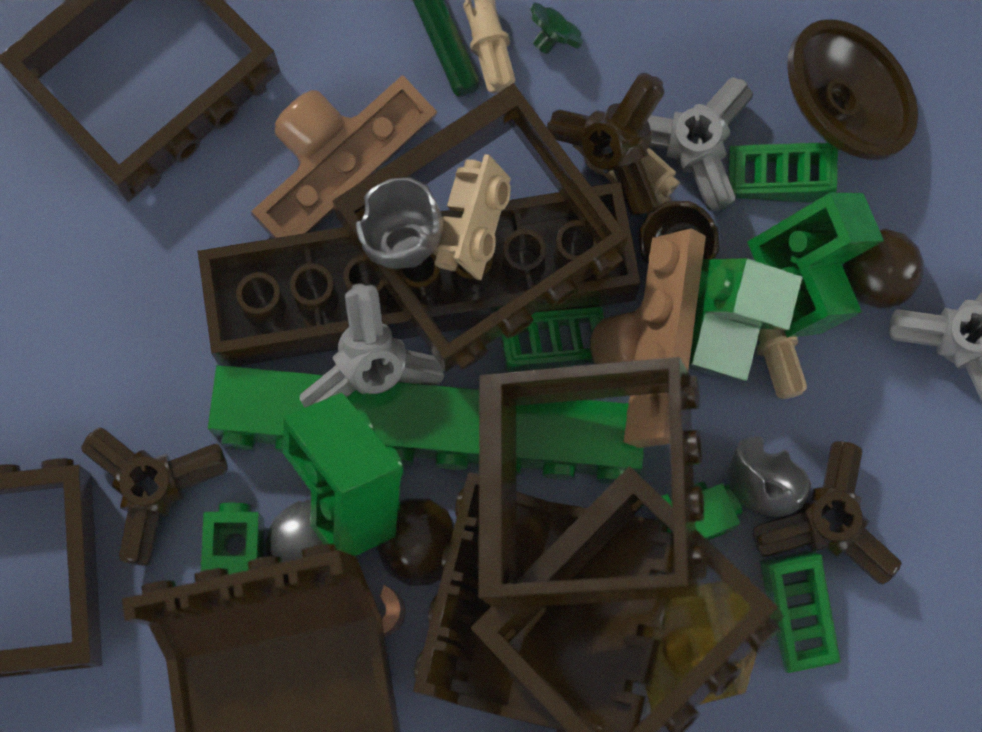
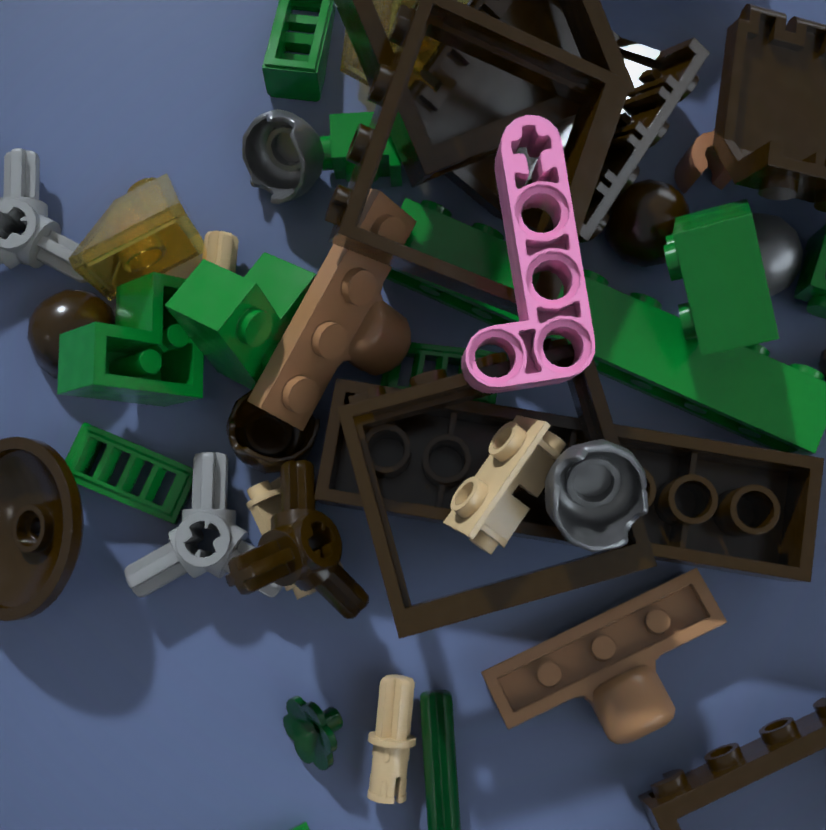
camera: 160 degrees left, 5 degrees up
(370, 356) = (661, 387): light grey bush -> none
(515, 393) = (531, 253): none -> bright pink beam
(812, 530) = (230, 83): dark brown bush -> none
(861, 366) = (138, 236): none -> clear yellow slope

